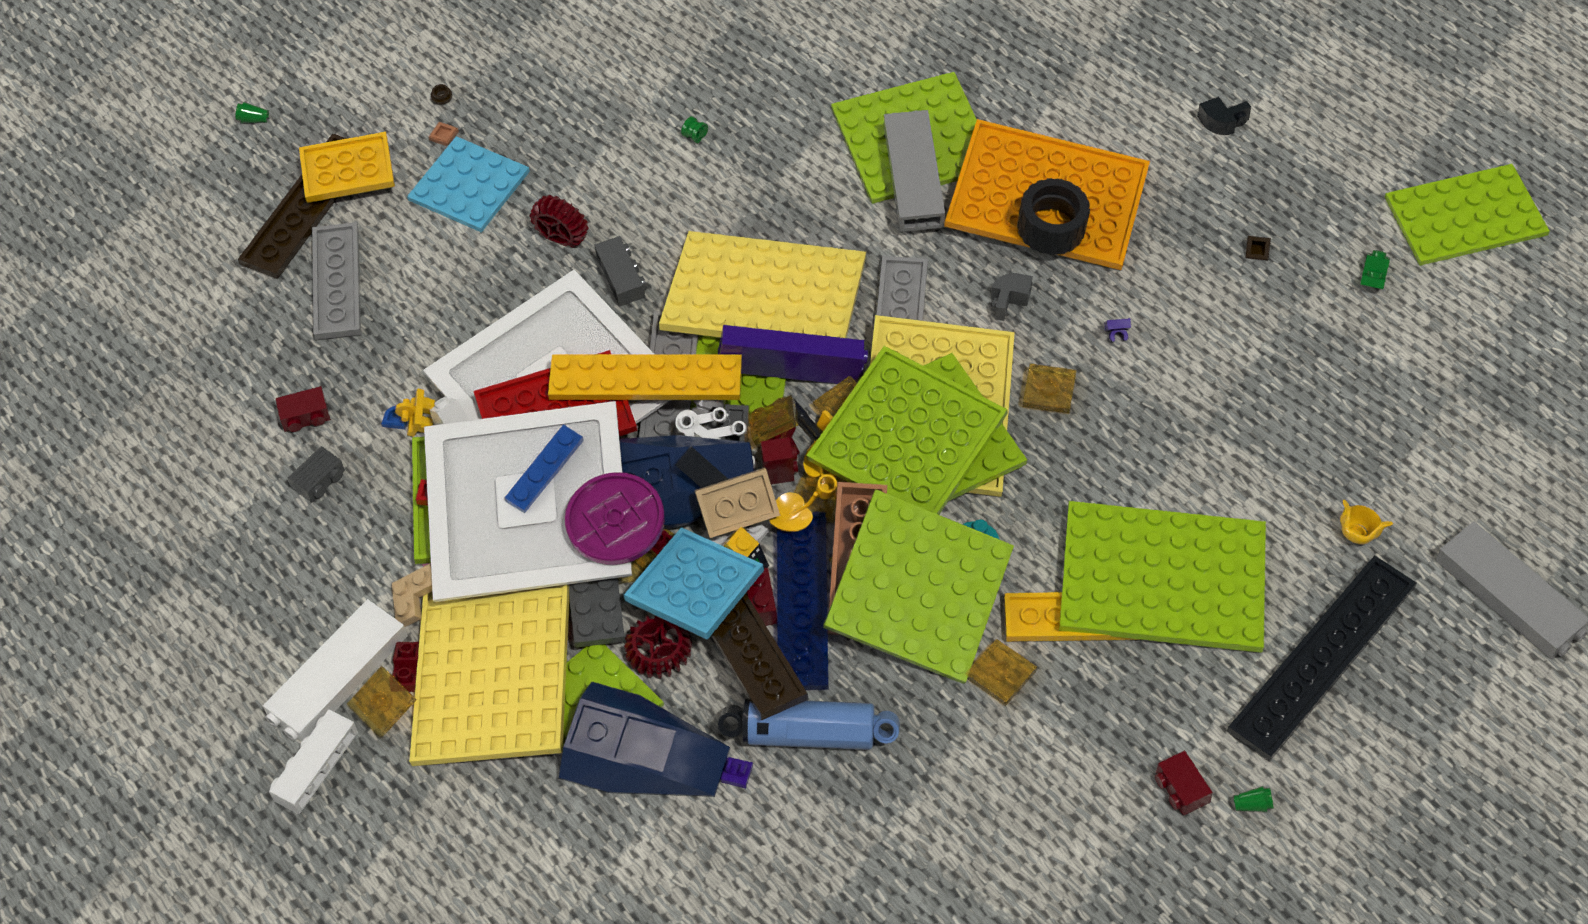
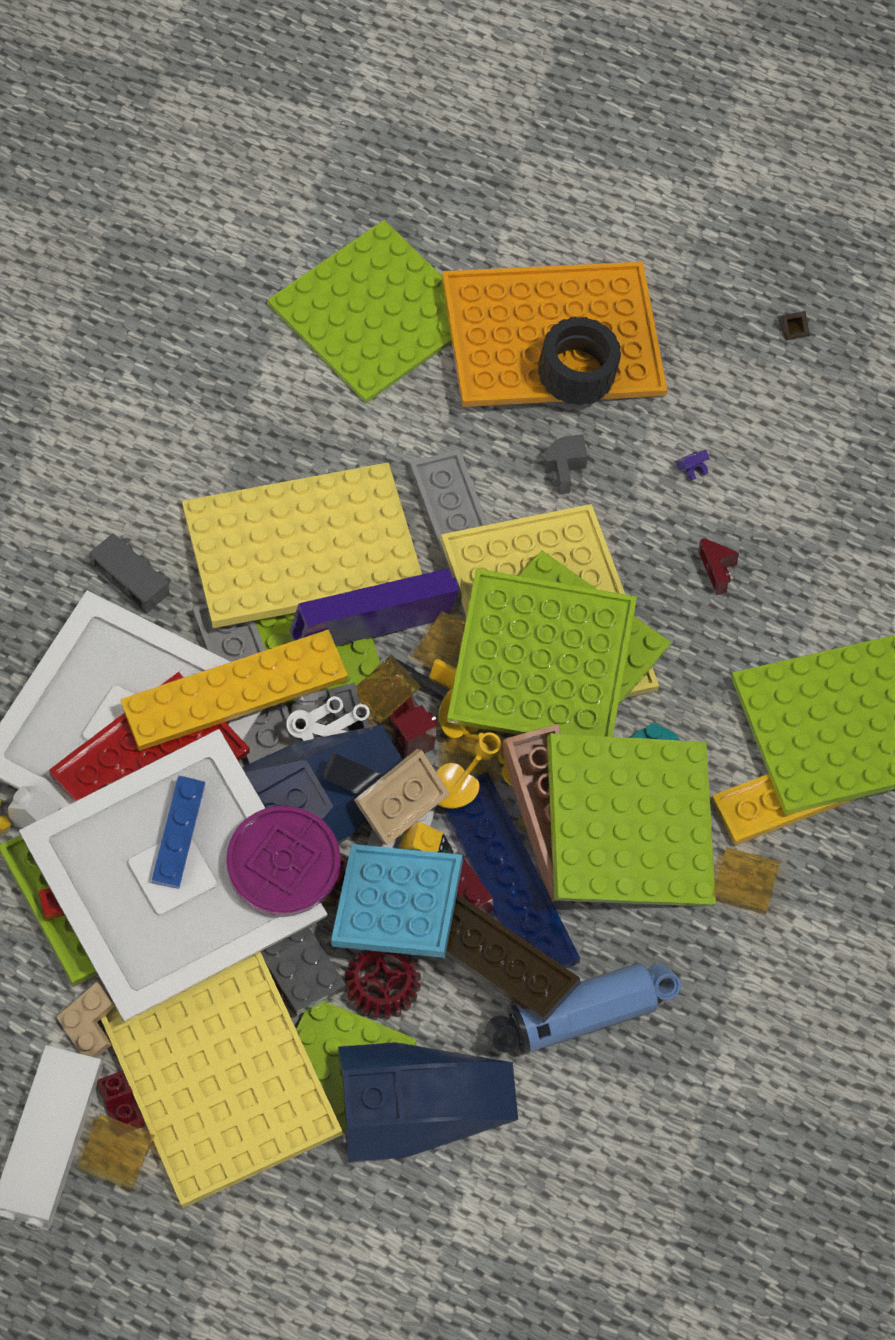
camera: 30 degrees left, 5 degrees up
(313, 761) = (75, 1245): white brick -> none
(559, 221) = (36, 538): dark red gear -> none
(694, 129) = (130, 378): green wheel -> none
(736, 772) = (529, 1086): dark purple tile -> none
(914, 171) = (401, 352): light grey brick -> none
(1049, 388) = (653, 554): clear yellow plate -> none
(1100, 409) = (716, 560): none -> dark red slope
(1220, 119) = (692, 189): black brick -> none

